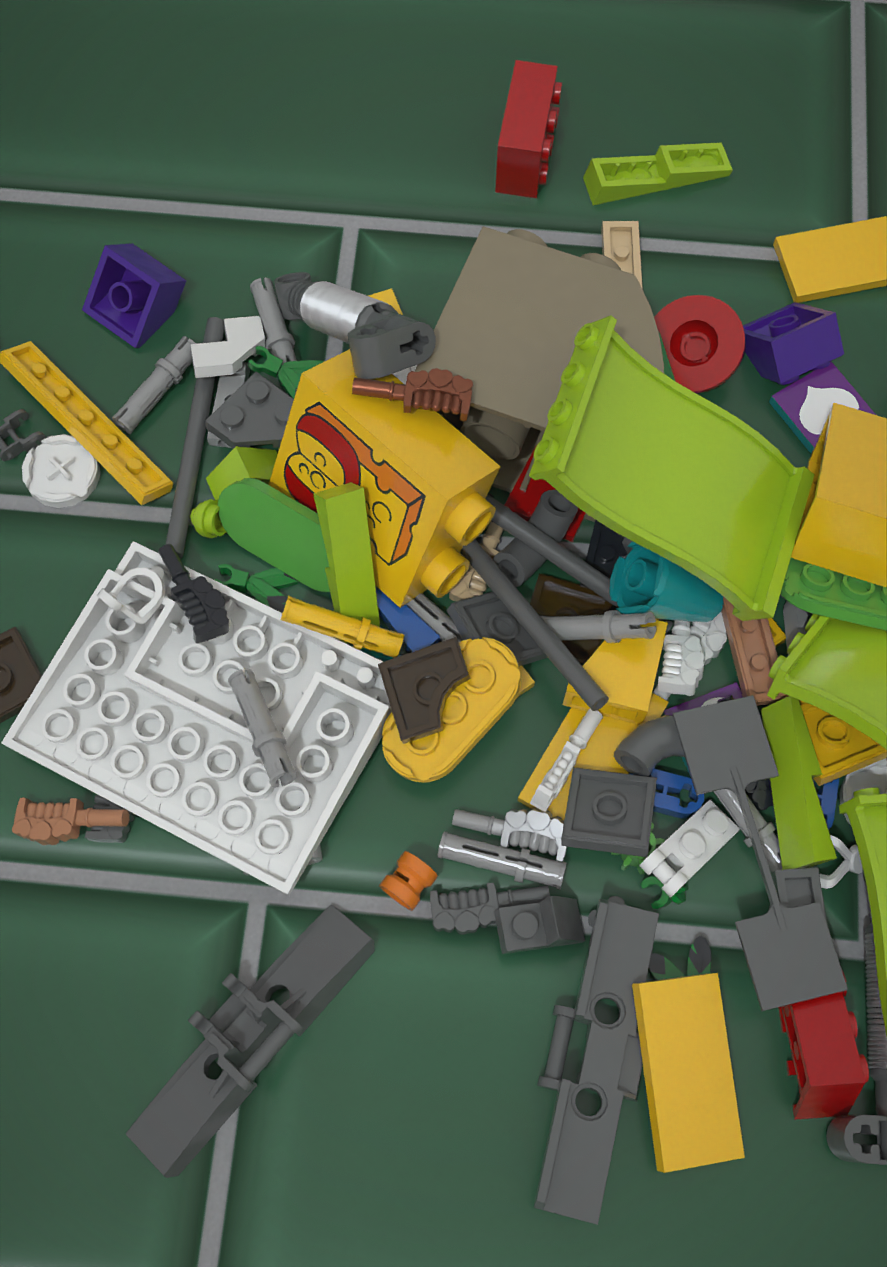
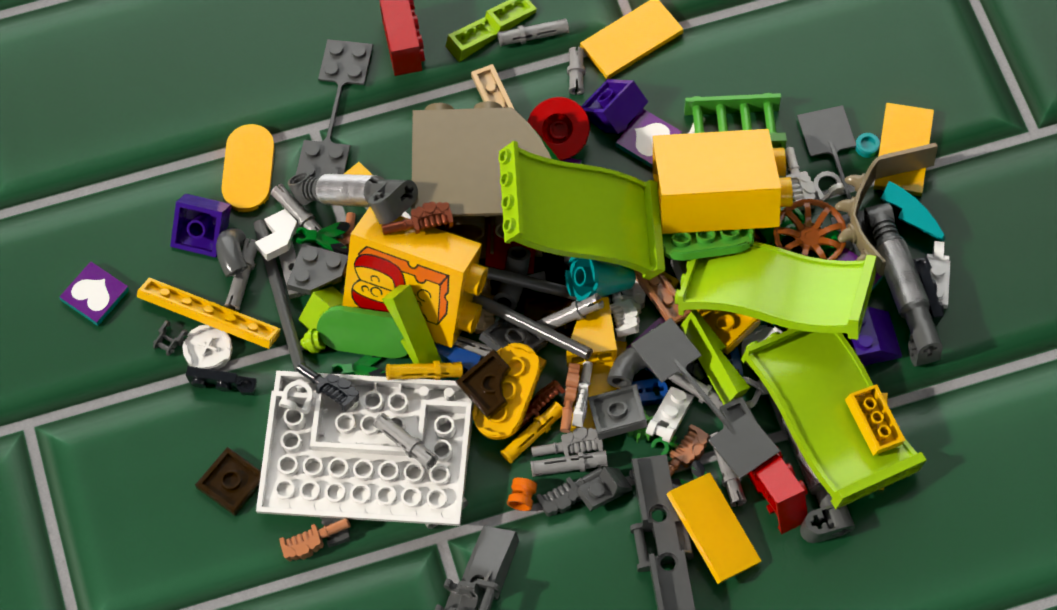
camera: 20 degrees left, 5 degrees down
(54, 526) = (221, 380): none -> black hinge
(147, 343) = (229, 251): none -> dark grey cylinder
(237, 242) = (248, 167): none -> yellow tile
(429, 151) = (344, 64): none -> dark grey hinge
(468, 786) = (532, 432): none -> yellow pin
(502, 739) = (540, 399): none -> copper piece
(554, 741) = (570, 395): none -> nougat piece
(699, 914) = (689, 450): none -> nougat piece
(714, 199) = (533, 32): none -> light grey pin
(746, 1005) = (730, 481): none -> light grey pin
(754, 274) = (576, 70): none -> light grey pin

